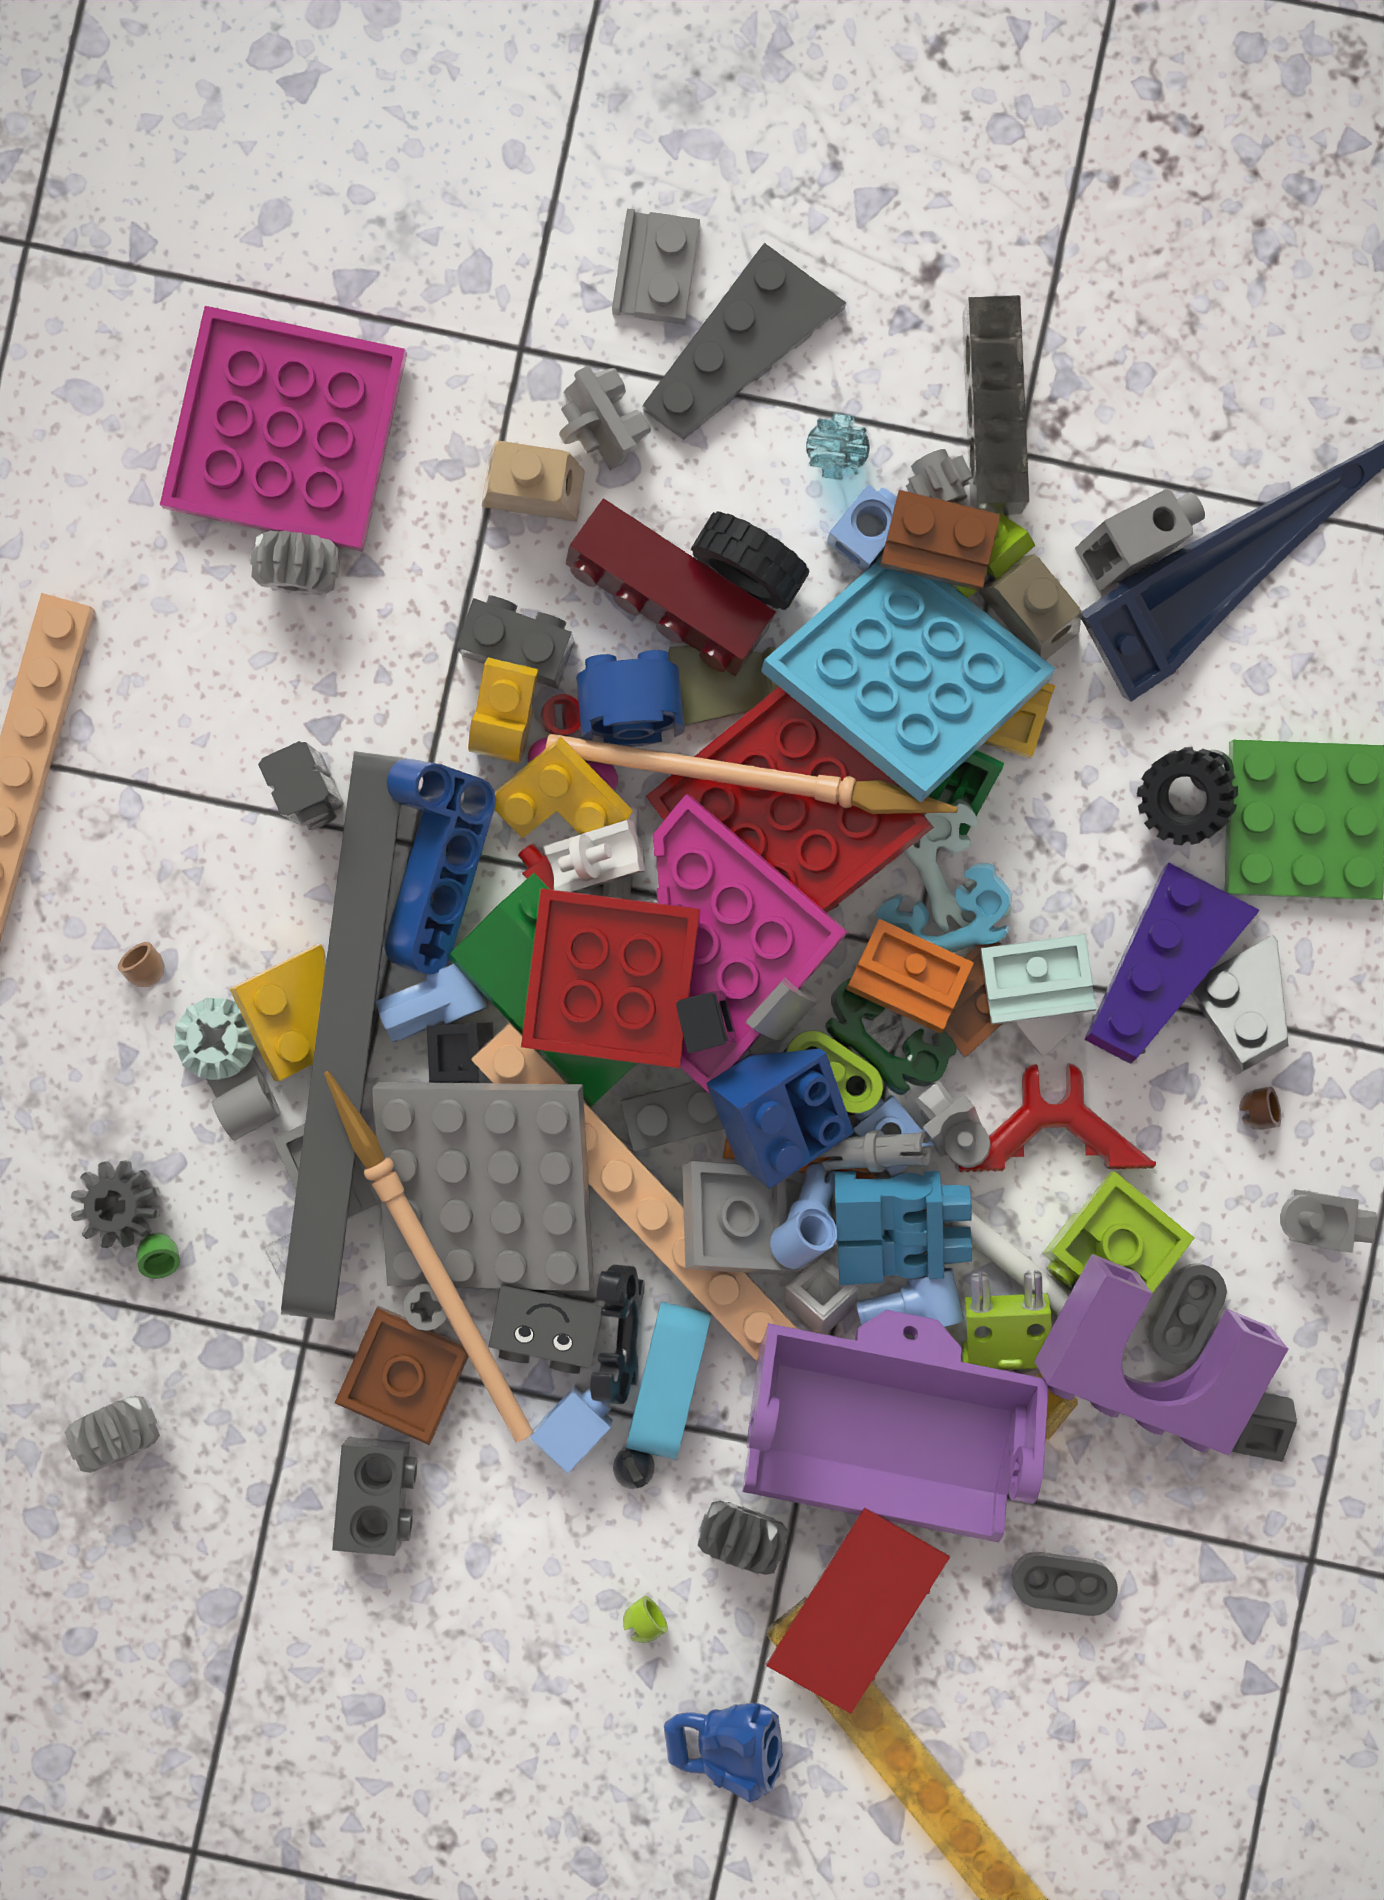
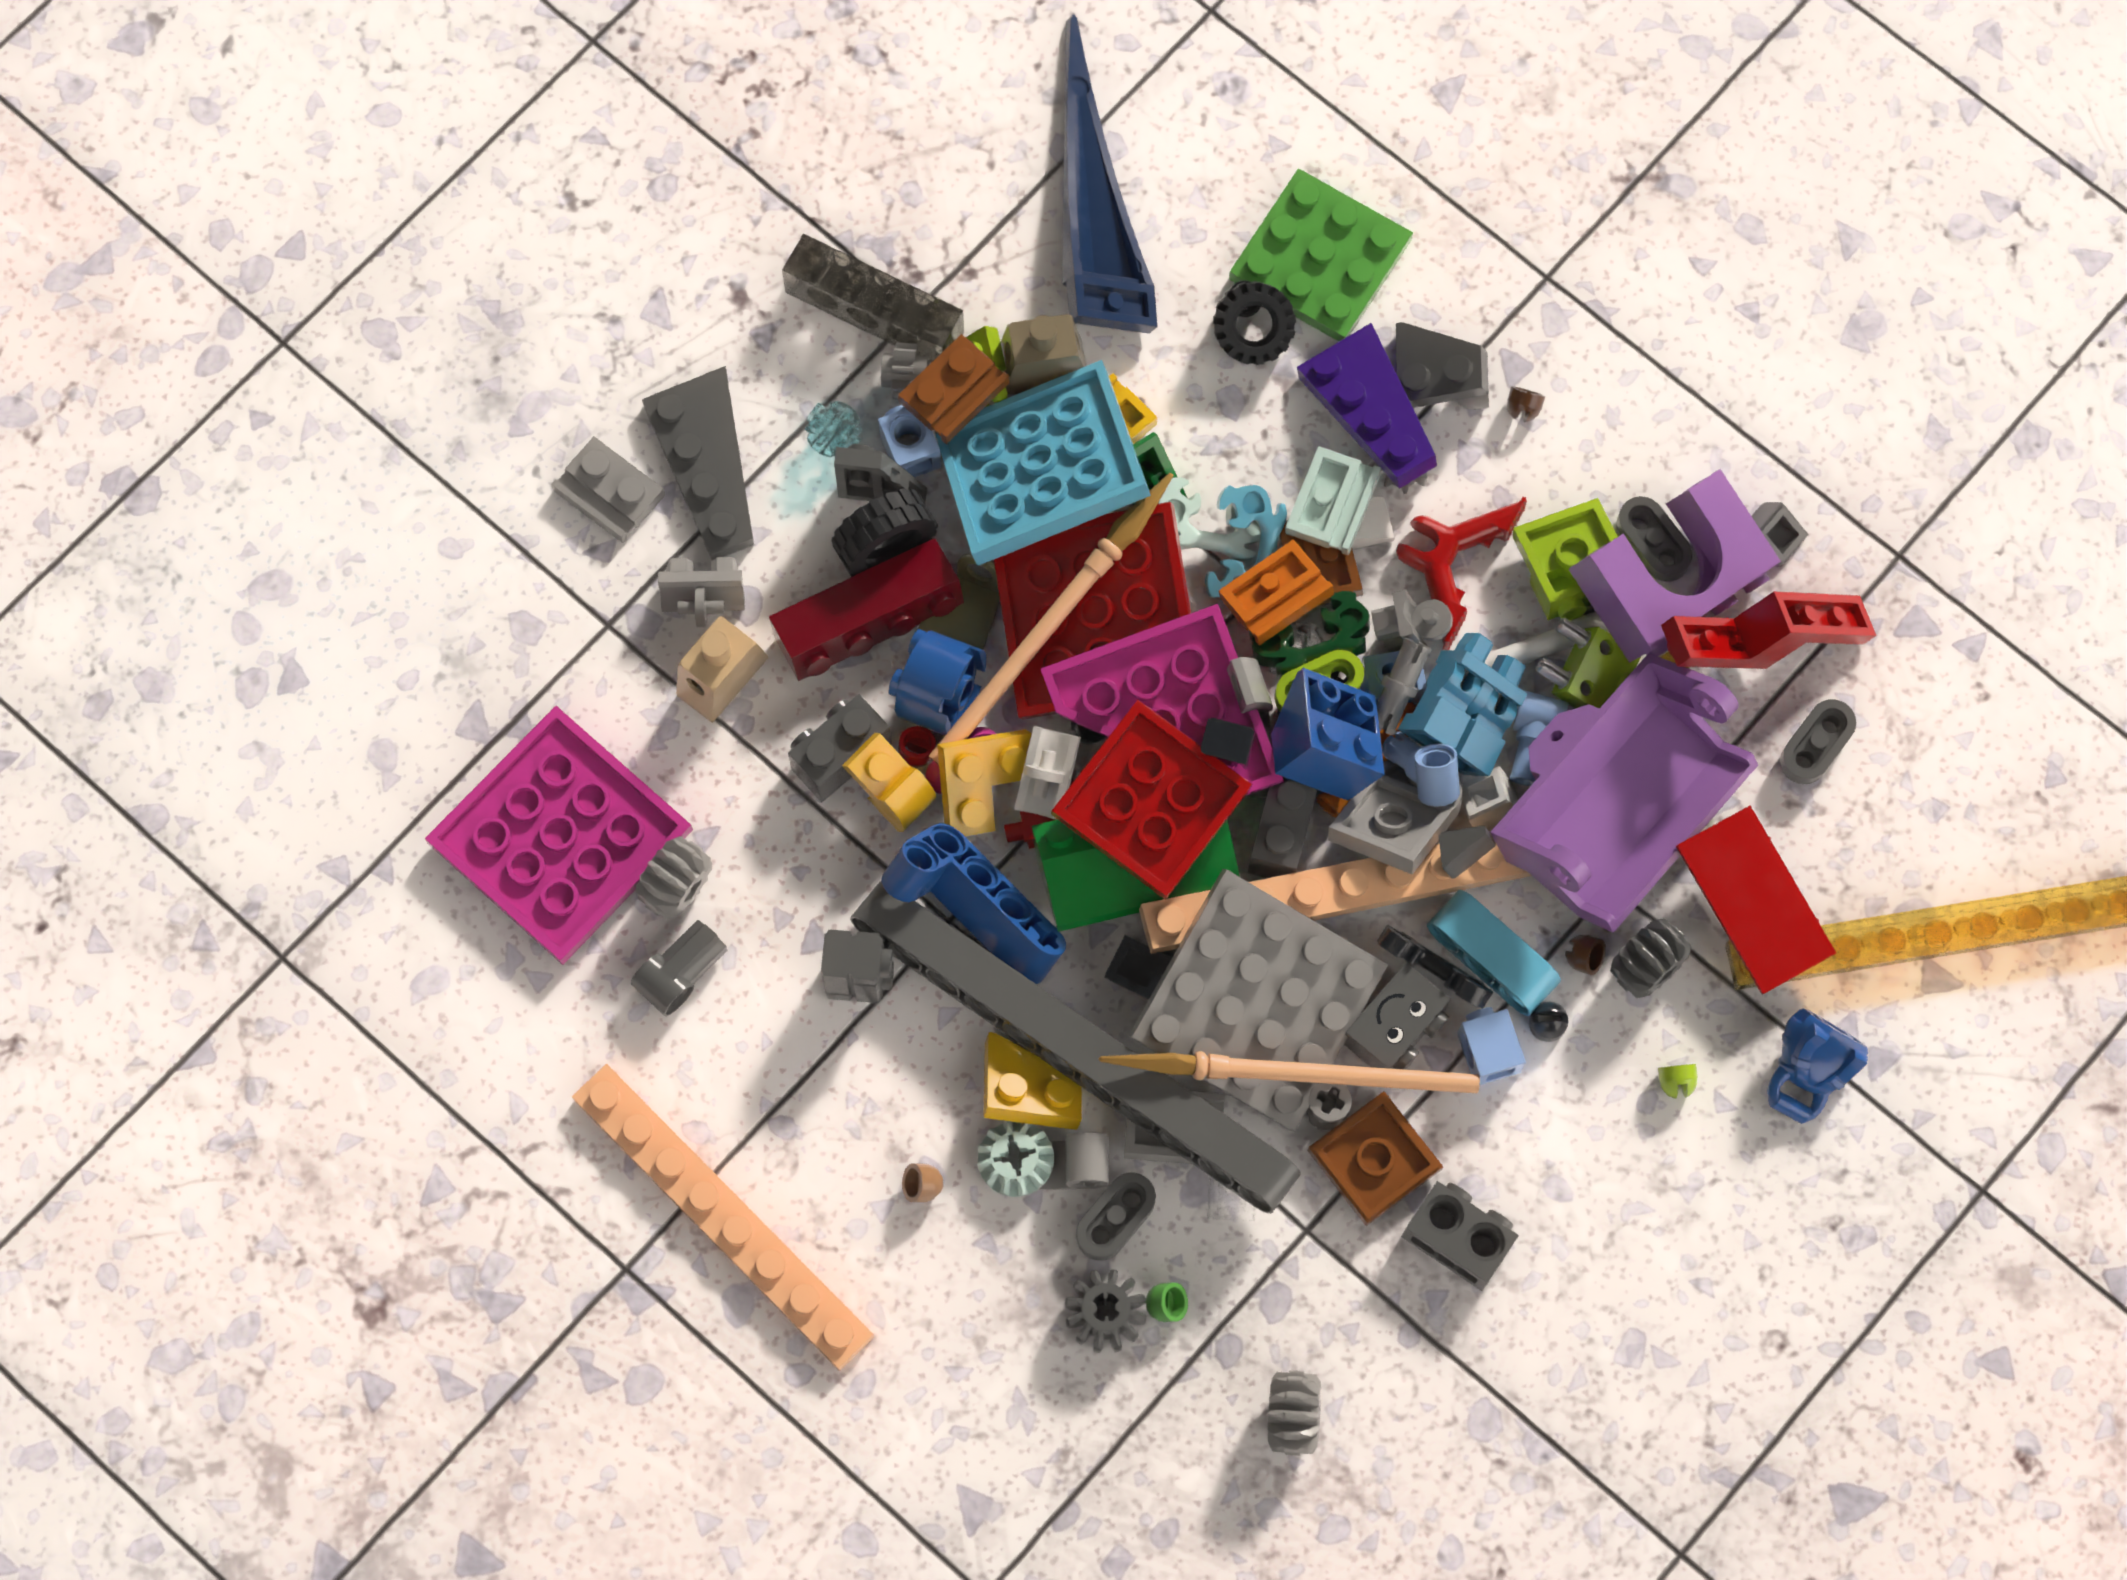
camera: 65 degrees left, 15 degrees down
(205, 616) = (670, 977): none -> dark grey piece
(213, 1163) = (1115, 1217): none -> dark grey plate
(439, 999) = (1086, 962): light blue piece -> none
(718, 1470) = (1587, 954): none -> reddish brown hinge
(738, 1302) = (1463, 848): none -> dark grey slope
(802, 501) = (870, 474): none -> dark grey wing
(1139, 536) = (1036, 243): light grey torso -> none
(1142, 1483) = (1768, 630): none -> red bracket
(1327, 1221) = (1637, 394): light grey hips -> none

